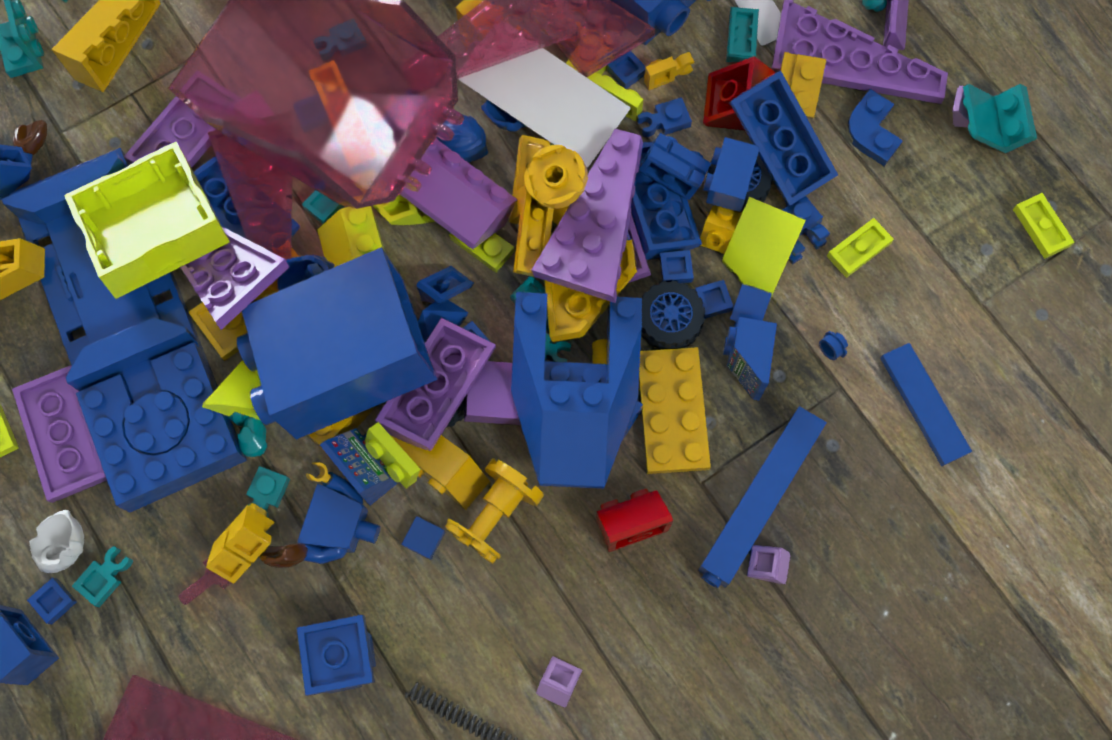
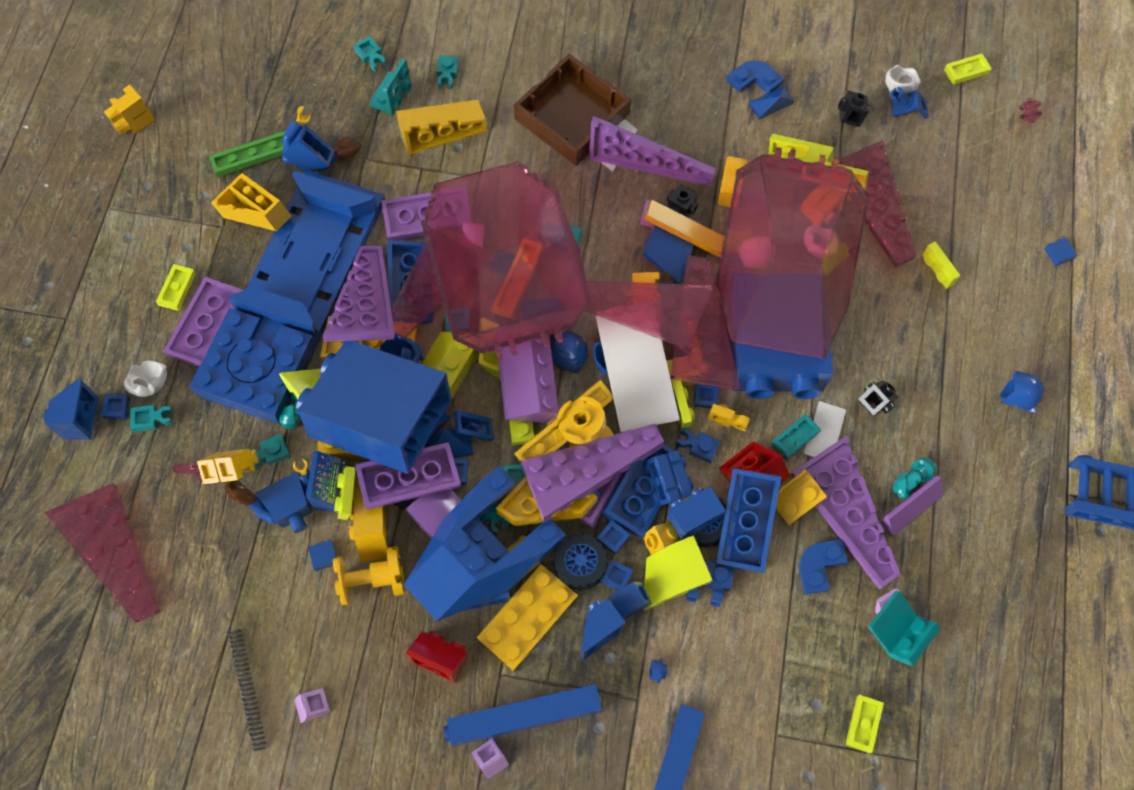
camera: 40 degrees right, 5 degrees down
(145, 220) = (351, 247): neon yellow tile -> none
(336, 655) = (214, 573): blue panel -> none
(860, 247) = (734, 628): neon yellow plate -> none

